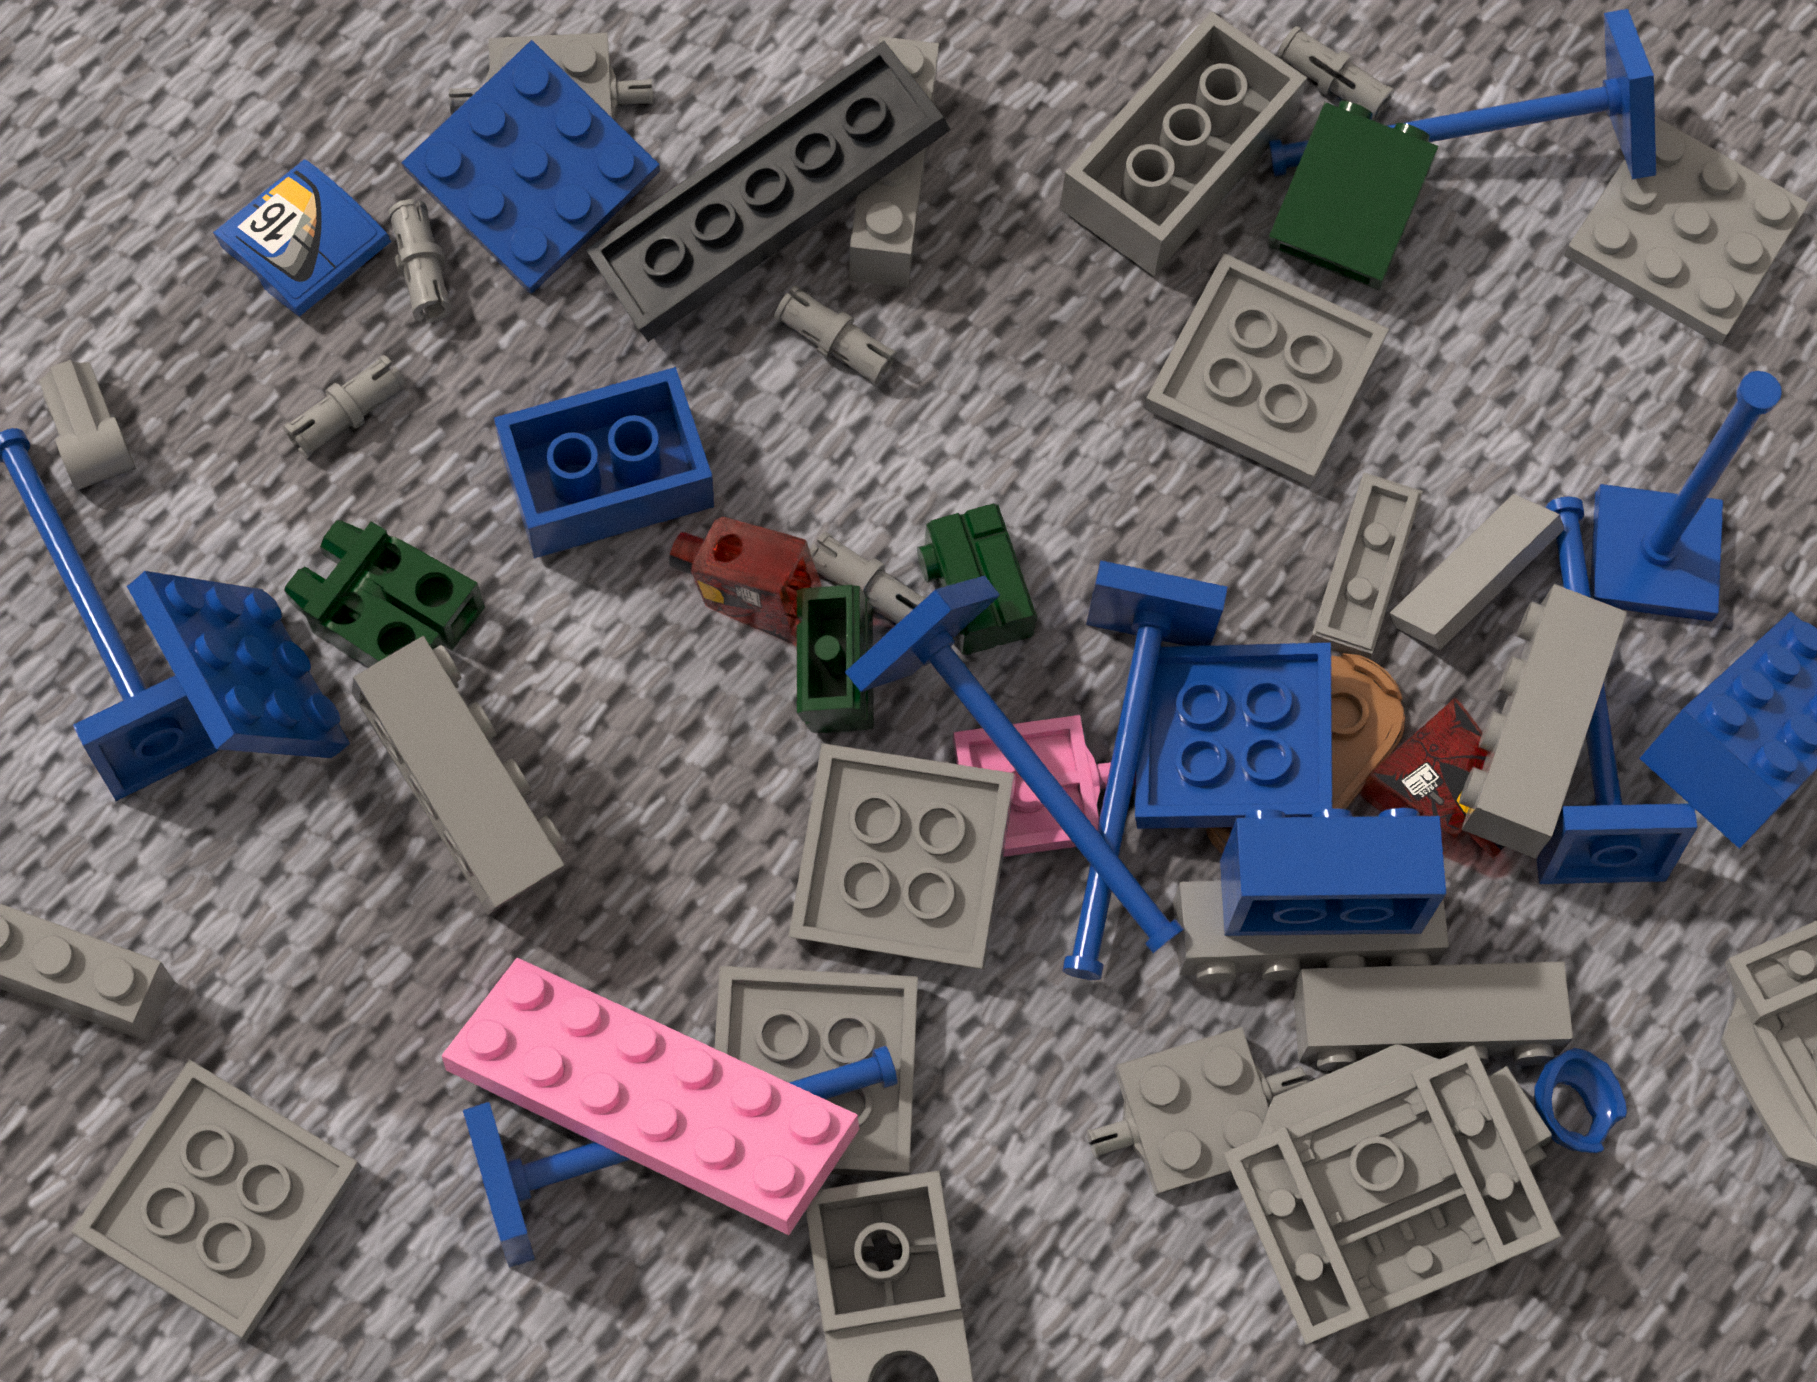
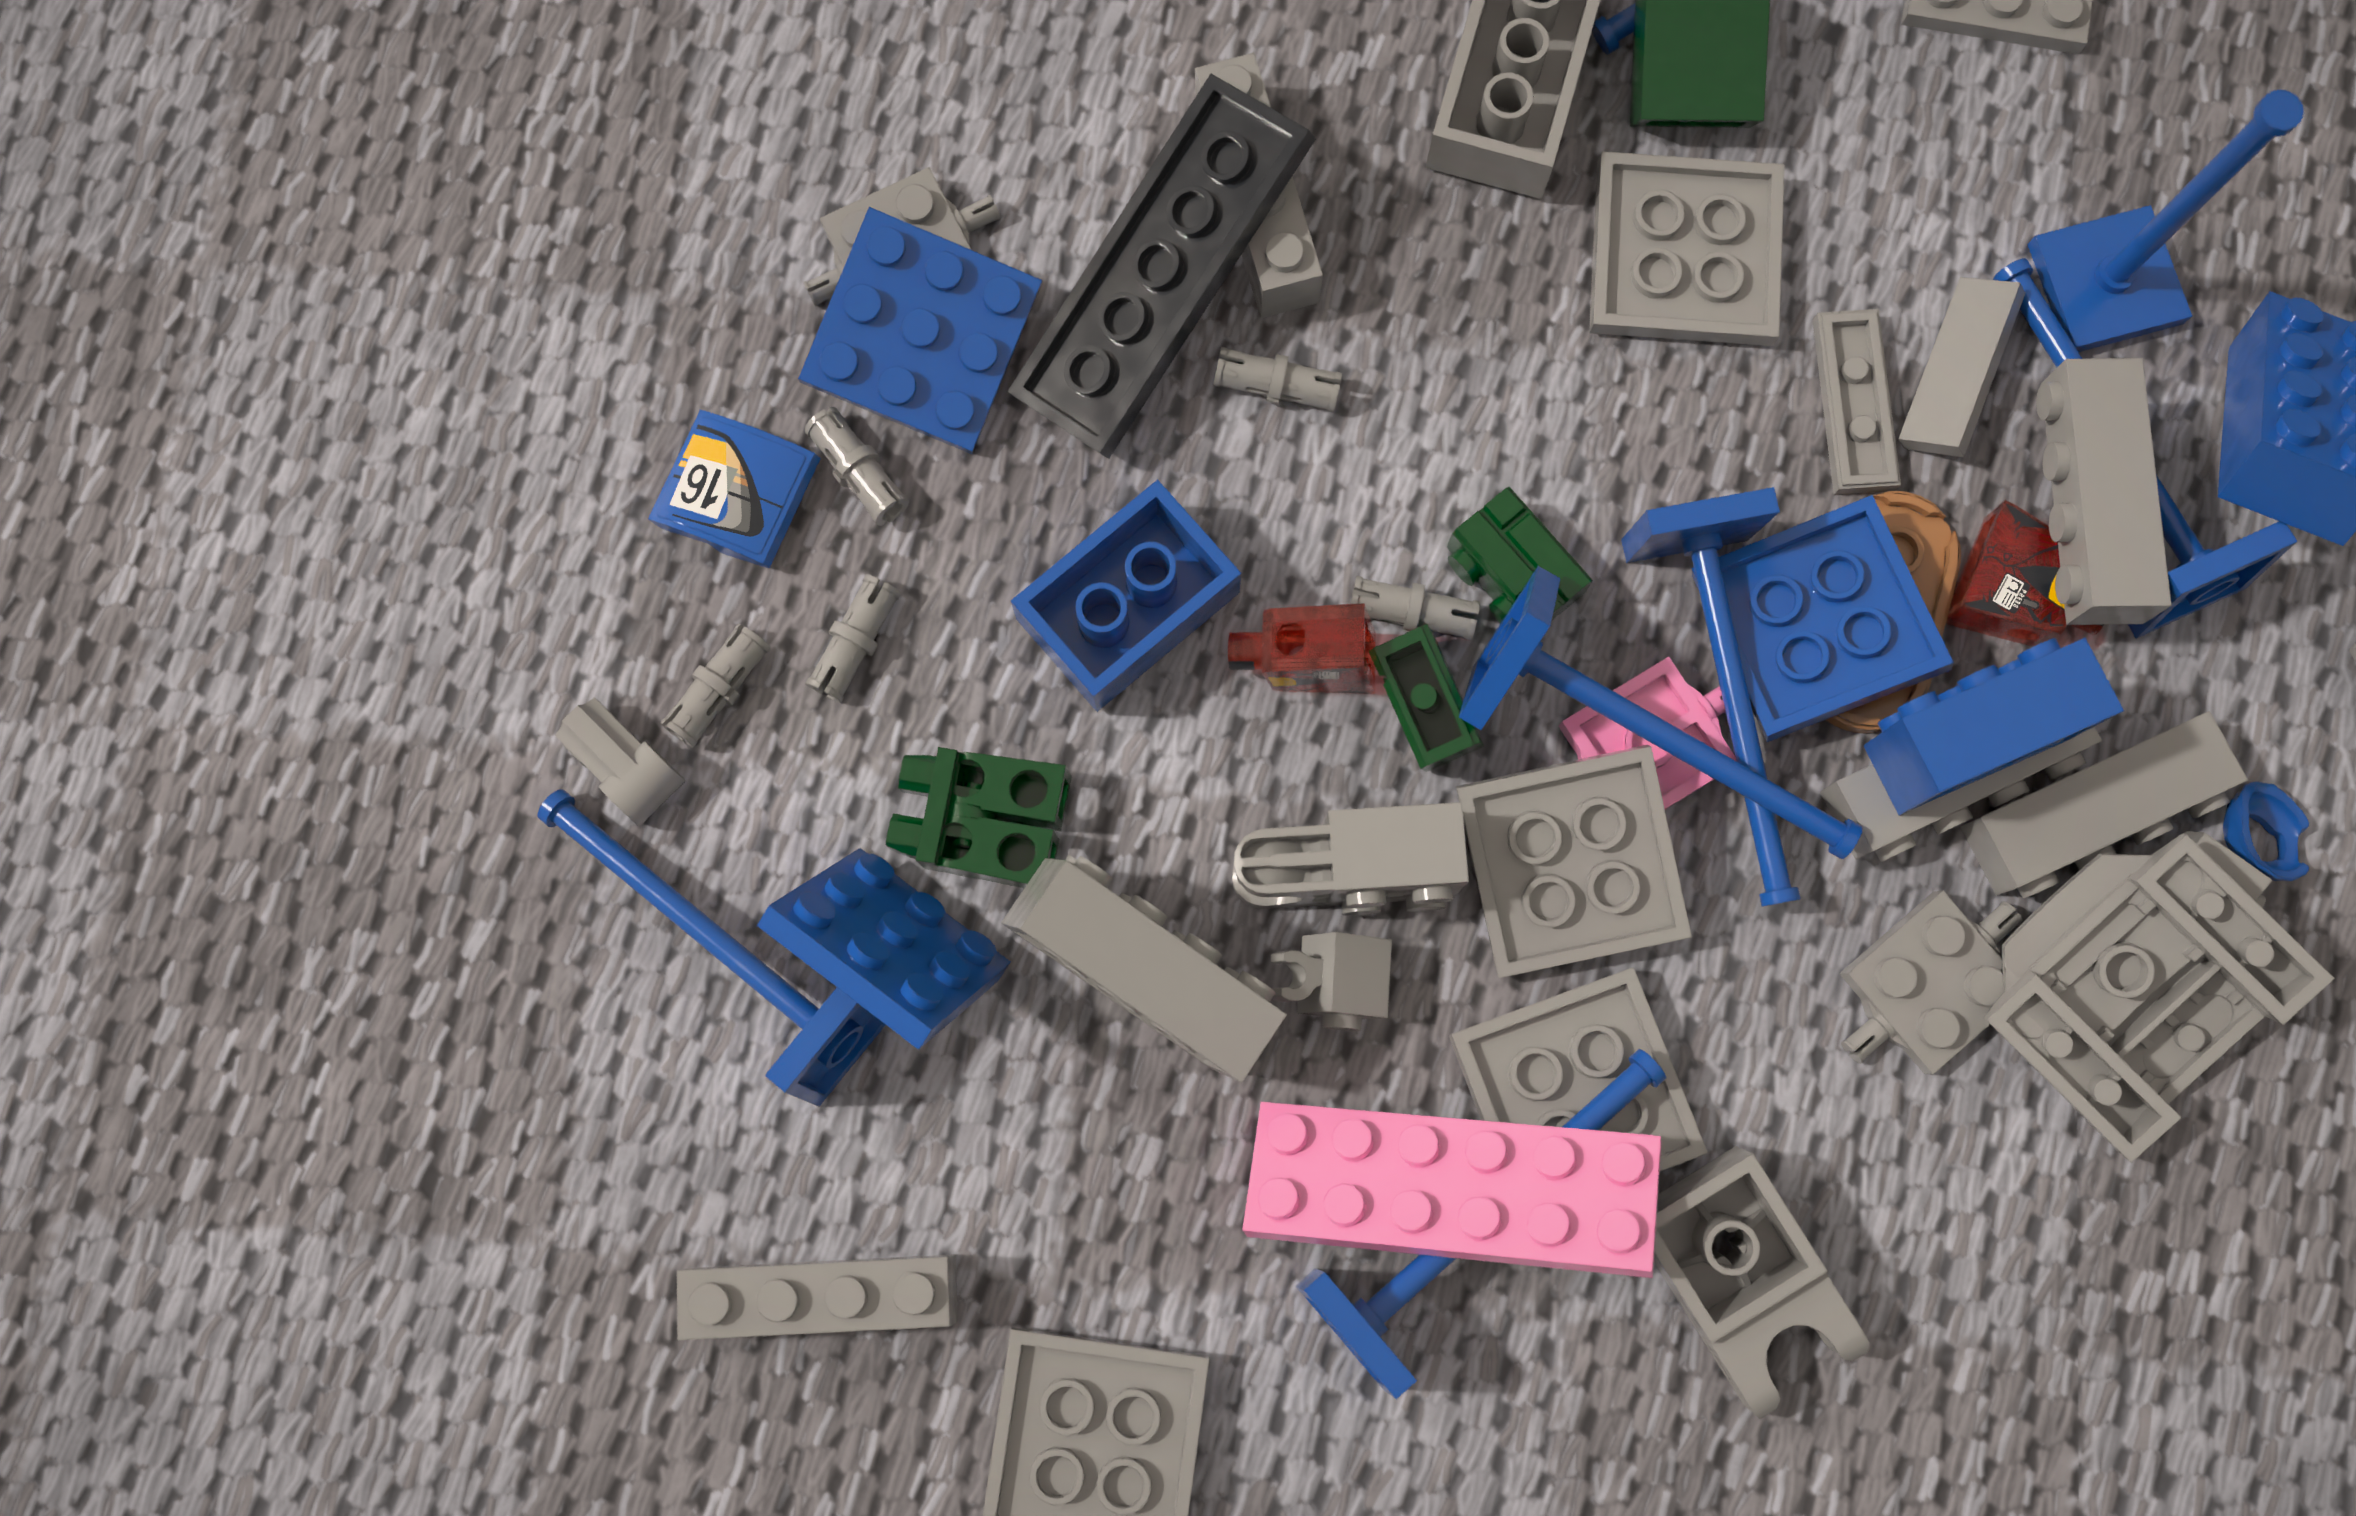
camera: 15 degrees left, 10 degrees up
(202, 396) = (715, 685): none -> light grey pin
(638, 871) = (1338, 978): none -> light grey brick
(697, 768) = (1357, 860): none -> light grey brick

